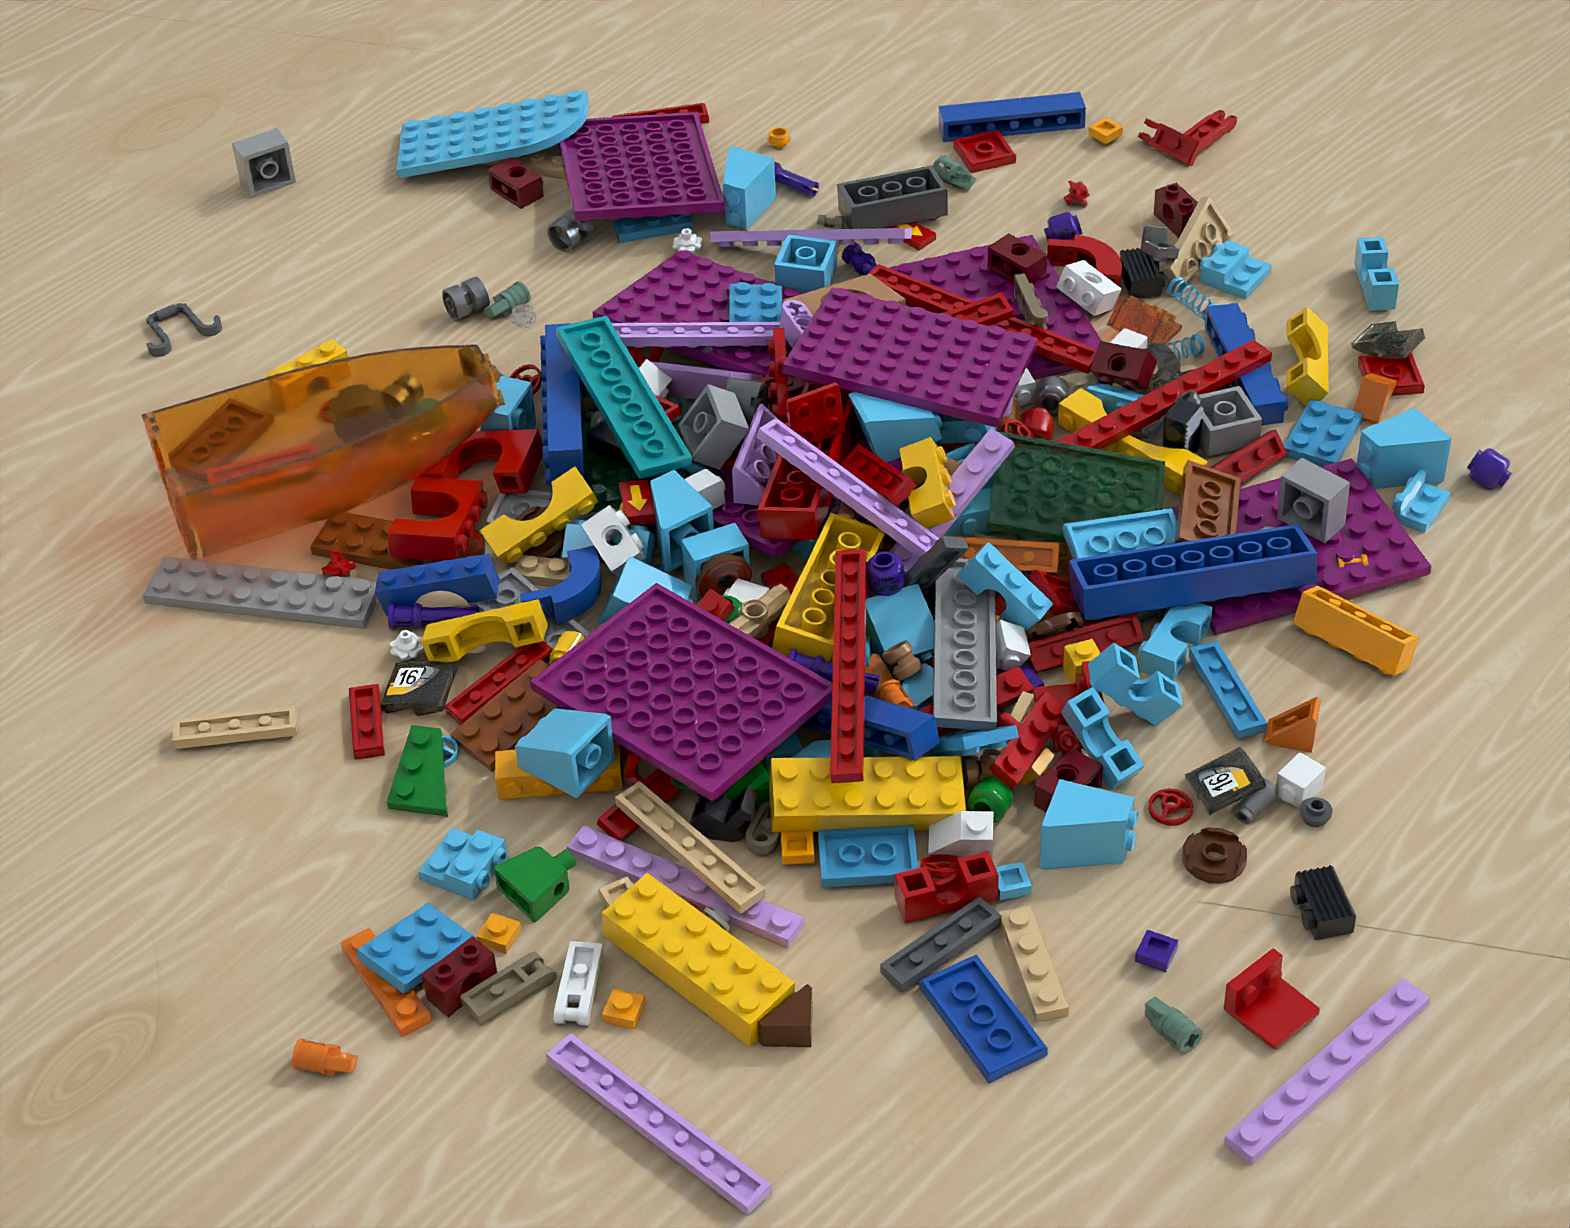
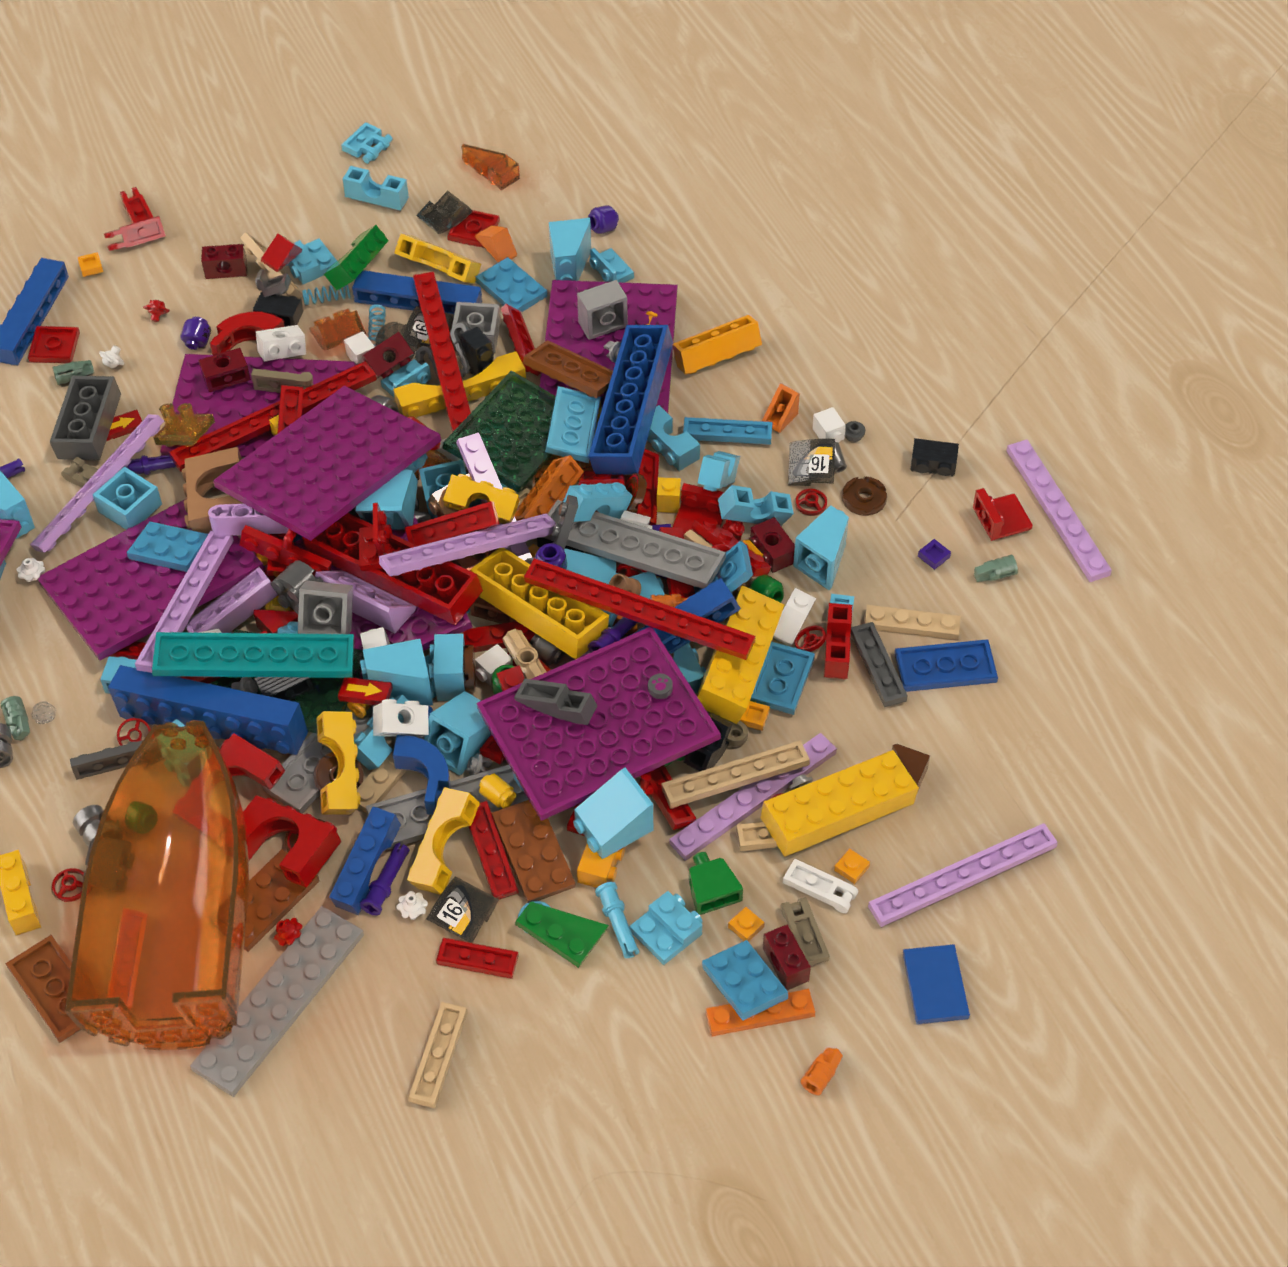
camera: 70 degrees left, 10 degrees up
(467, 808) = (614, 908): none -> medium azure pin
(486, 1140) = (935, 984): none -> blue tile
(681, 638) = (557, 700): none -> dark grey slope
(748, 716) = (660, 686): none -> dark grey tile
(913, 257) = (182, 427): none -> clear yellow plate
(989, 190) = (112, 357): none -> white plant
(1206, 232) = (280, 253): none -> red slope
(1262, 292) = (364, 249): none -> green arch
(1454, 242) = (361, 142): none -> medium azure plate
(1497, 353) = (493, 165): none -> clear orange slope

